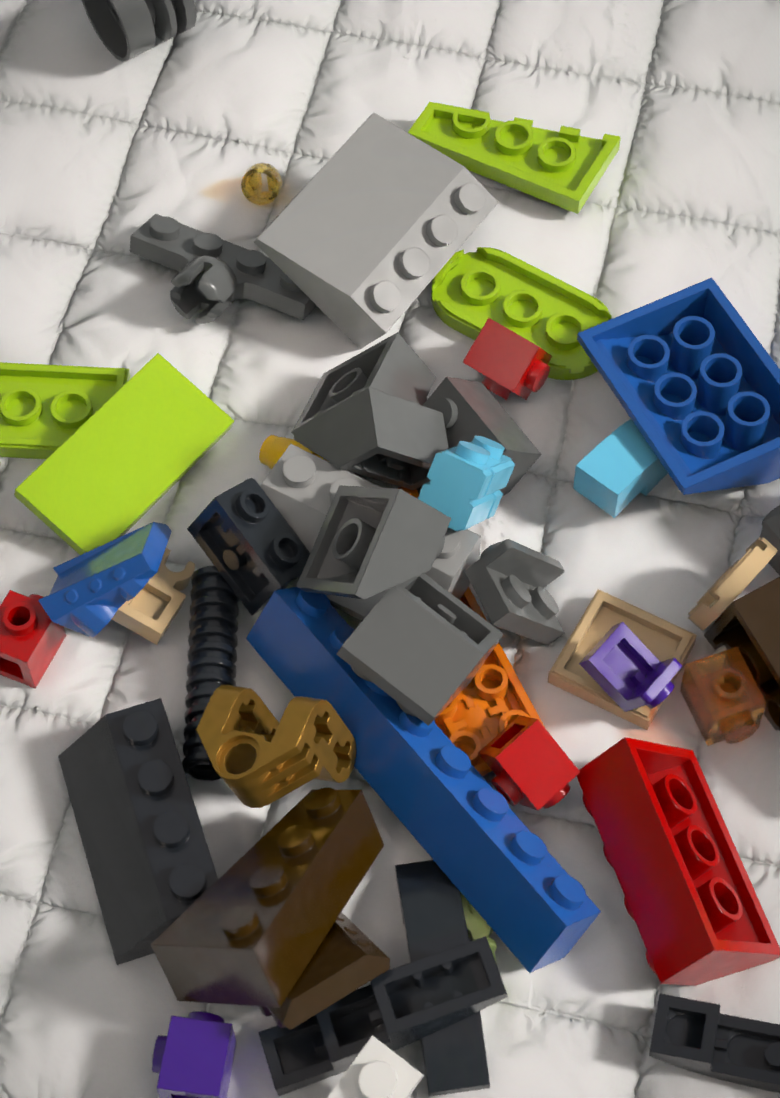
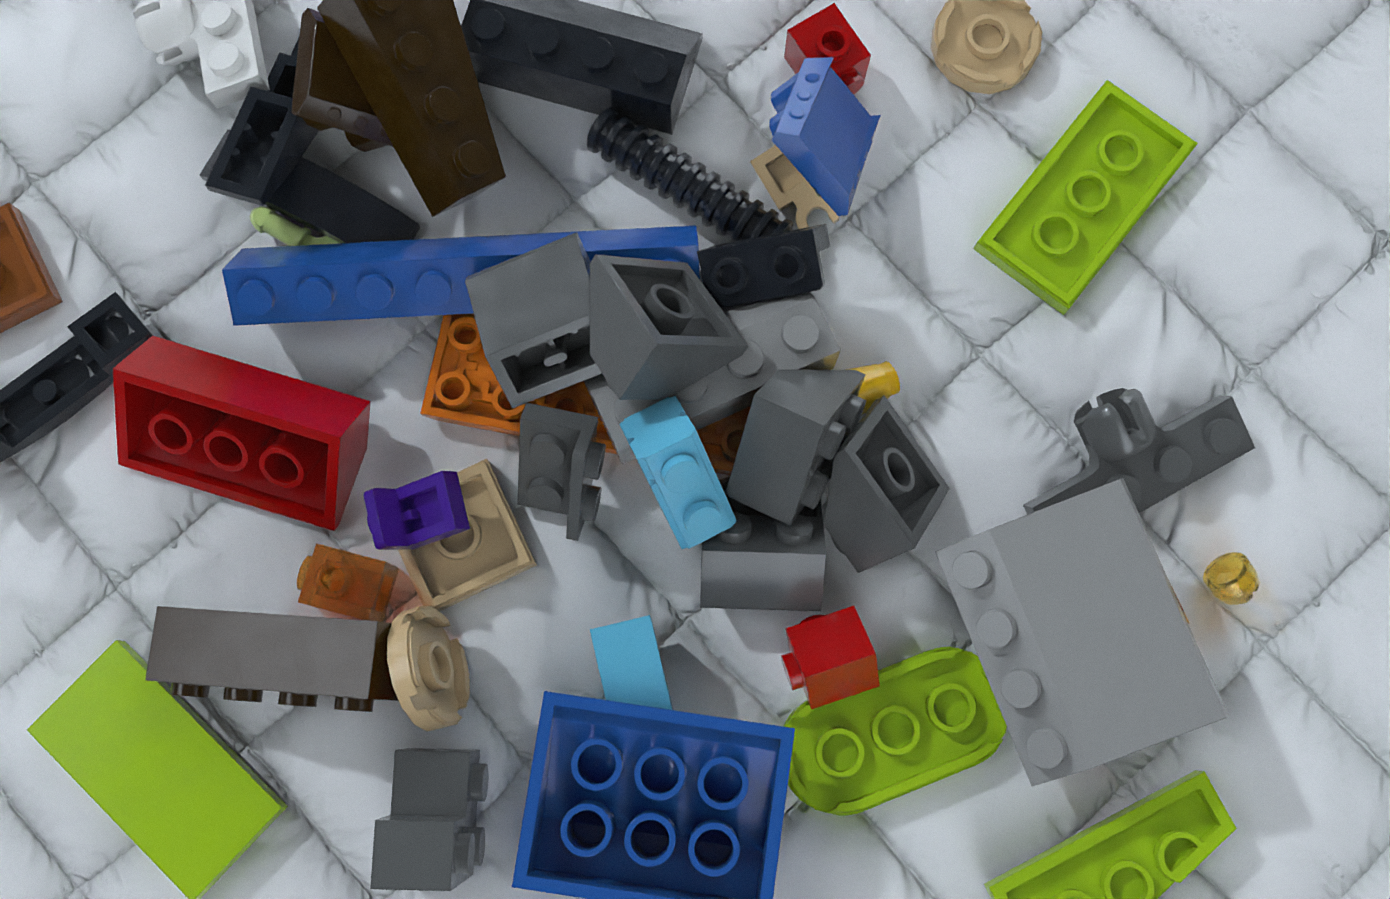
camera: 125 degrees right, 20 degrees up
(124, 457) = (962, 243): lime tile -> none
(270, 757) = (537, 123): pearl gold piece -> none
(529, 765) = (404, 366): red brick -> none

